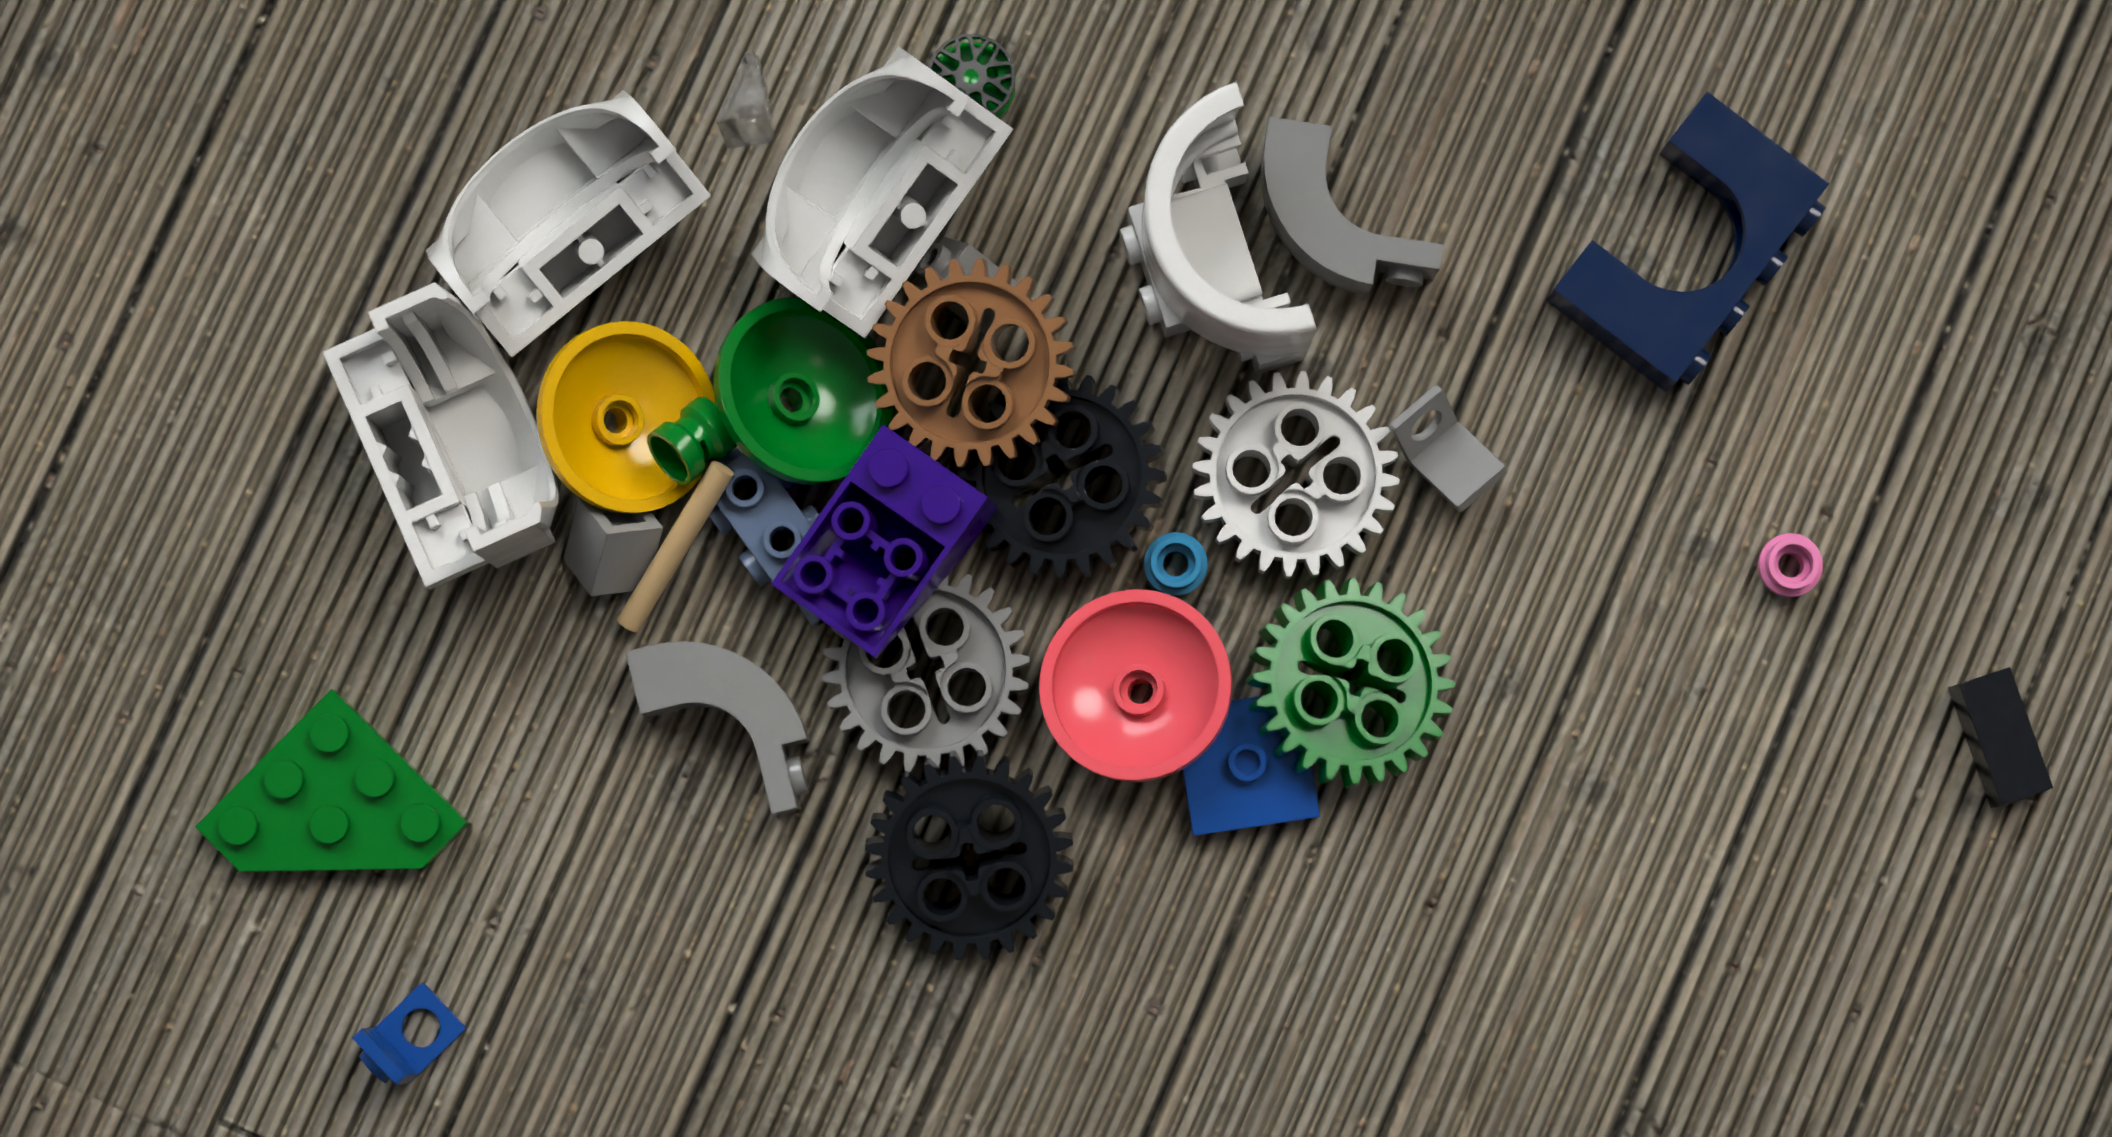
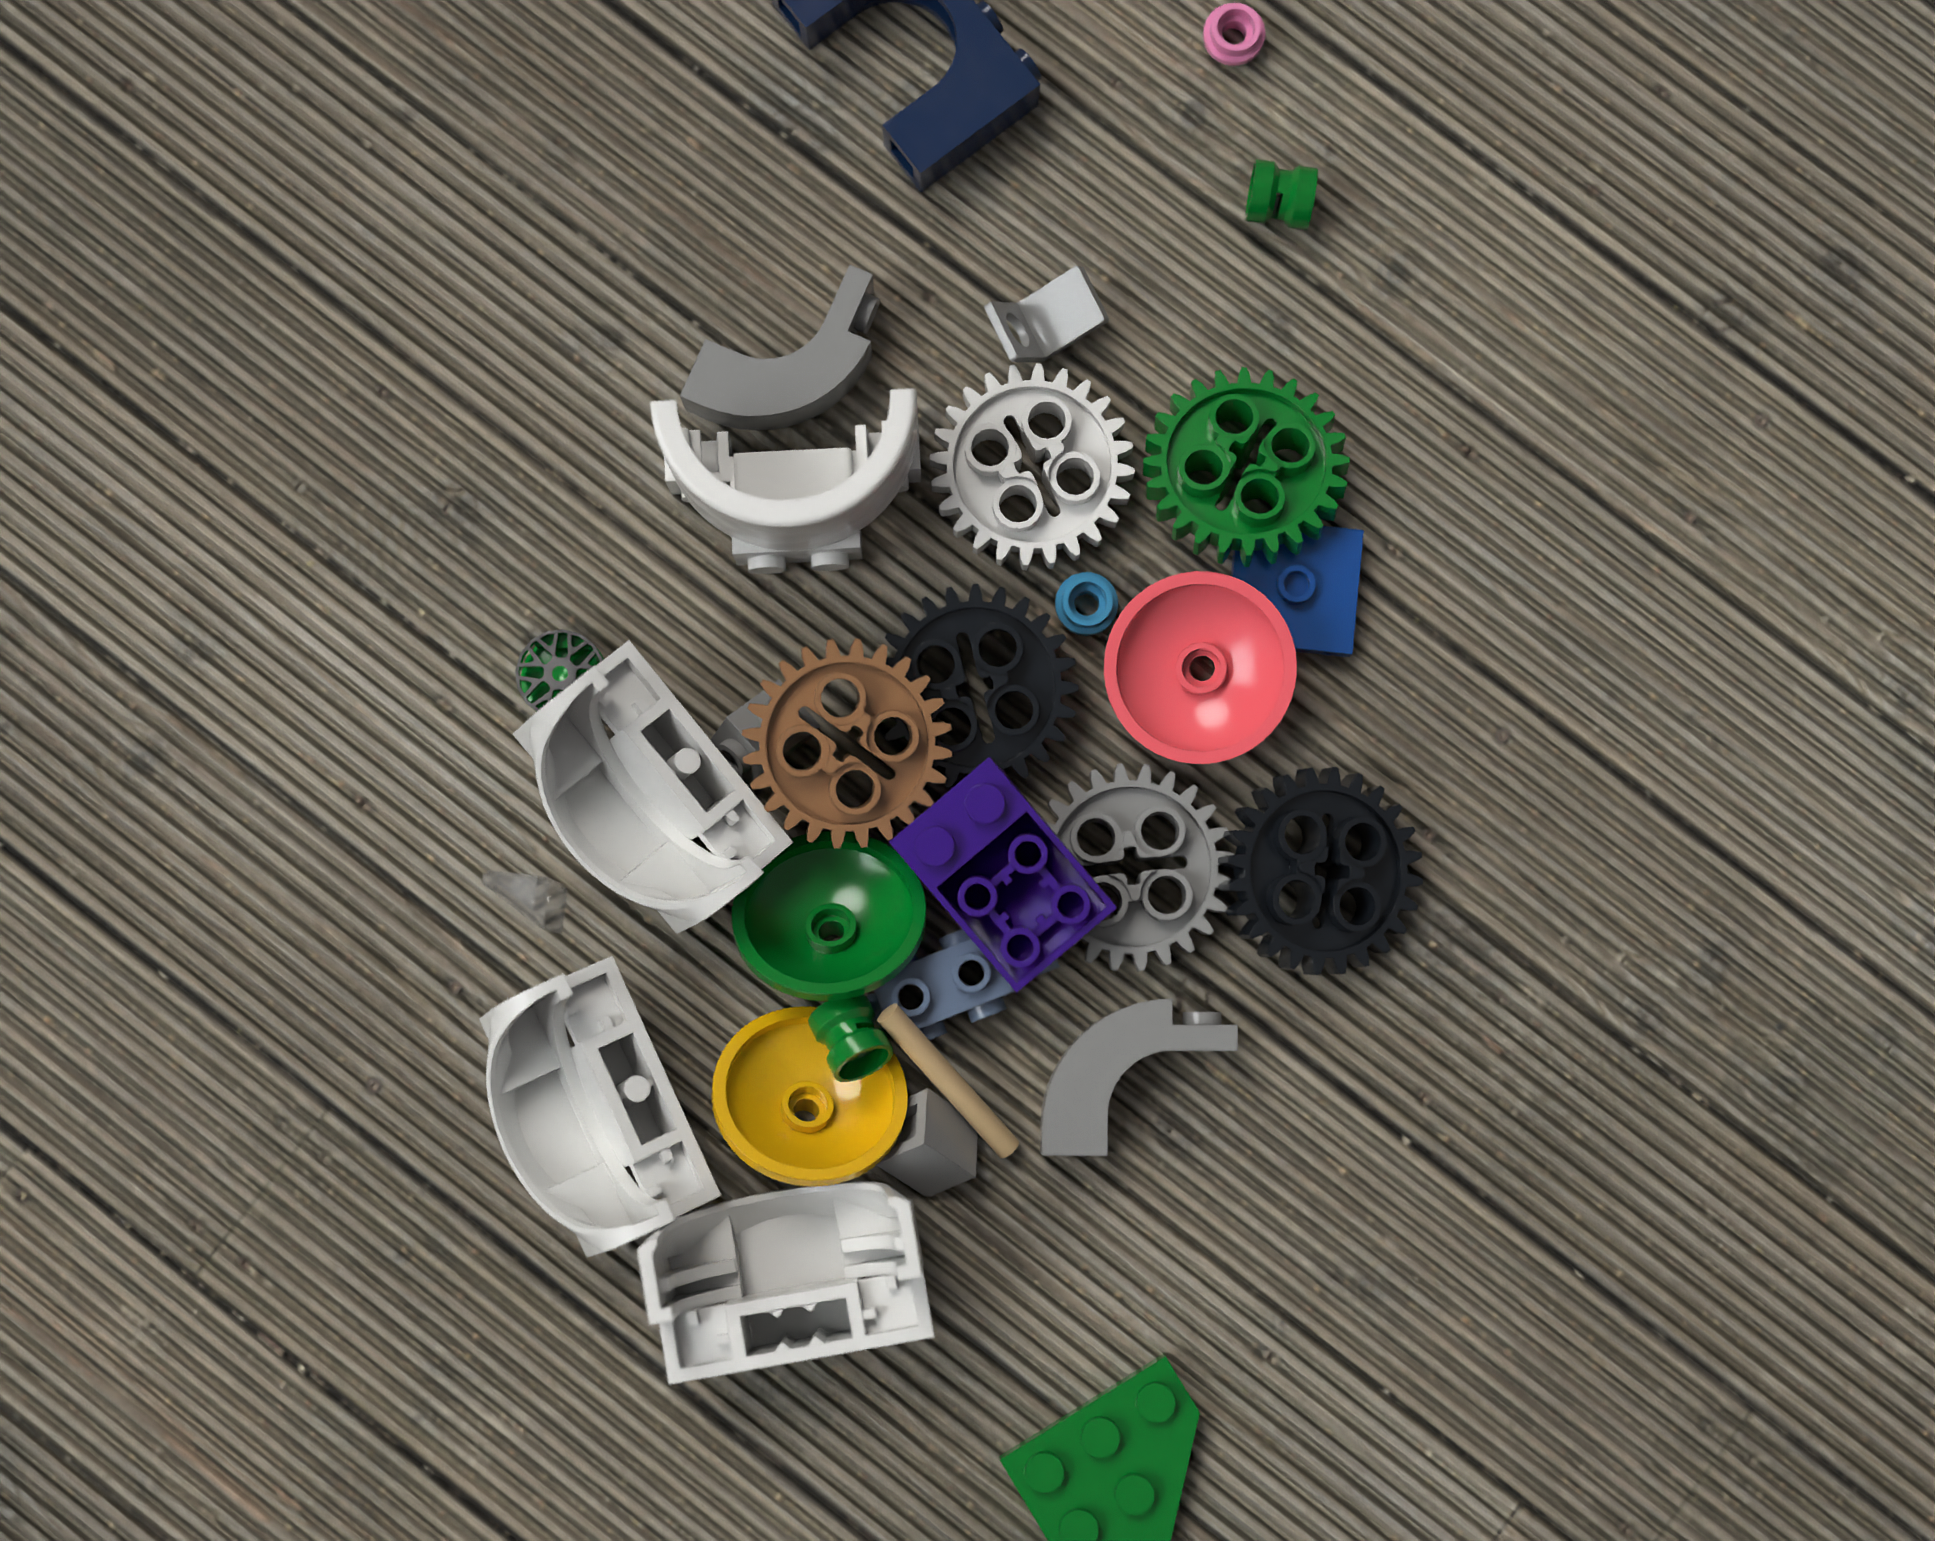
camera: 80 degrees left, 0 degrees up
(391, 1054) = (1376, 1486): blue bracket -> none
(1636, 650) = (1296, 195): none -> green wheel

